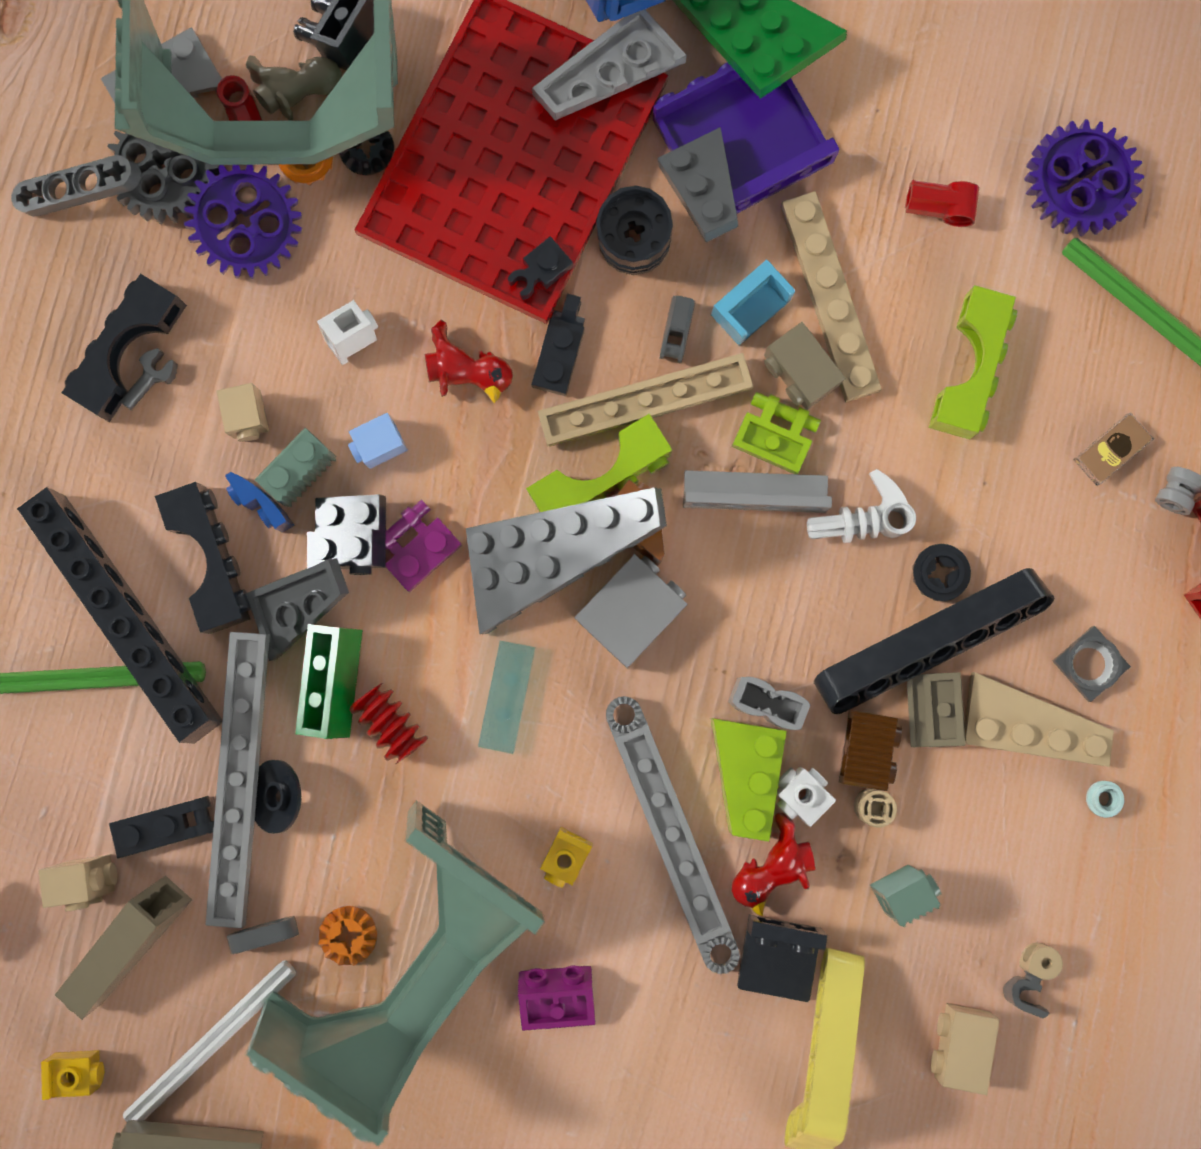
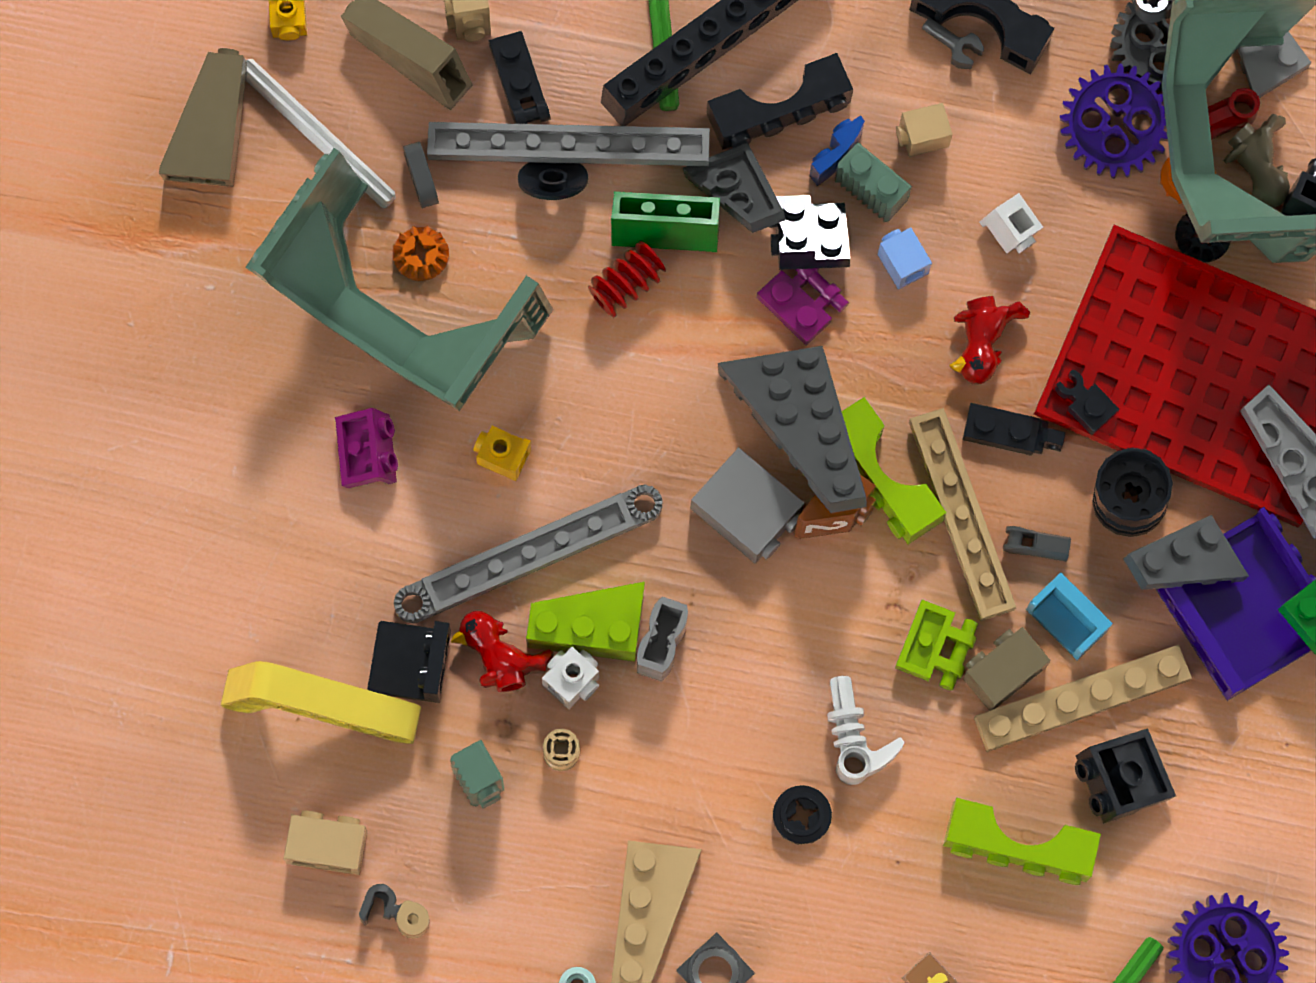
camera: 80 degrees right, 10 degrees down
(506, 697) = (656, 392): clear light blue tile -> none
(756, 491) = (875, 626): light grey fence -> none
(869, 751) = (617, 743): reddish brown brick -> none
(912, 261) = (1123, 776): none -> black plate
(933, 641) = (732, 804): black beam -> none
(936, 710) = (661, 810): dark tan plate -> none
(952, 202) = (1189, 818): red piece -> none

